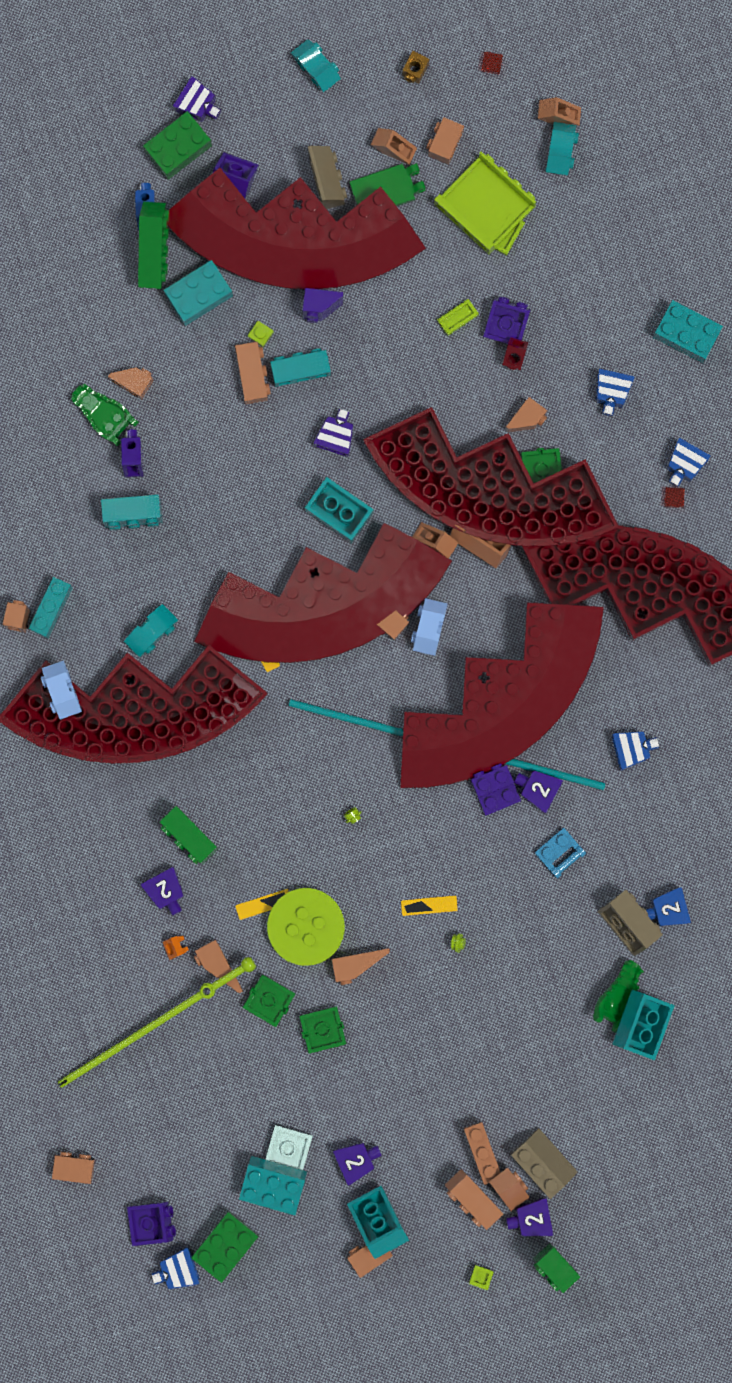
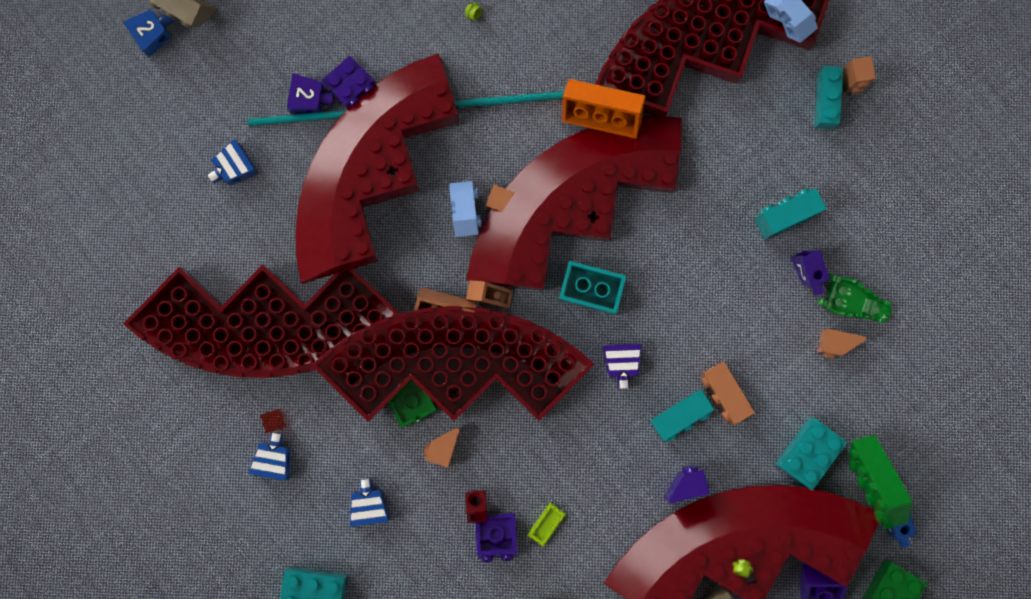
camera: 165 degrees right, 0 degrees up
(144, 638) = (725, 111): teal brick -> none
(260, 334) = (733, 436): lime plate -> none
(267, 670) = (602, 108): none -> orange brick
(302, 214) = (742, 568): none -> lime plate
(555, 848) = (274, 50): dark azure plate -> none

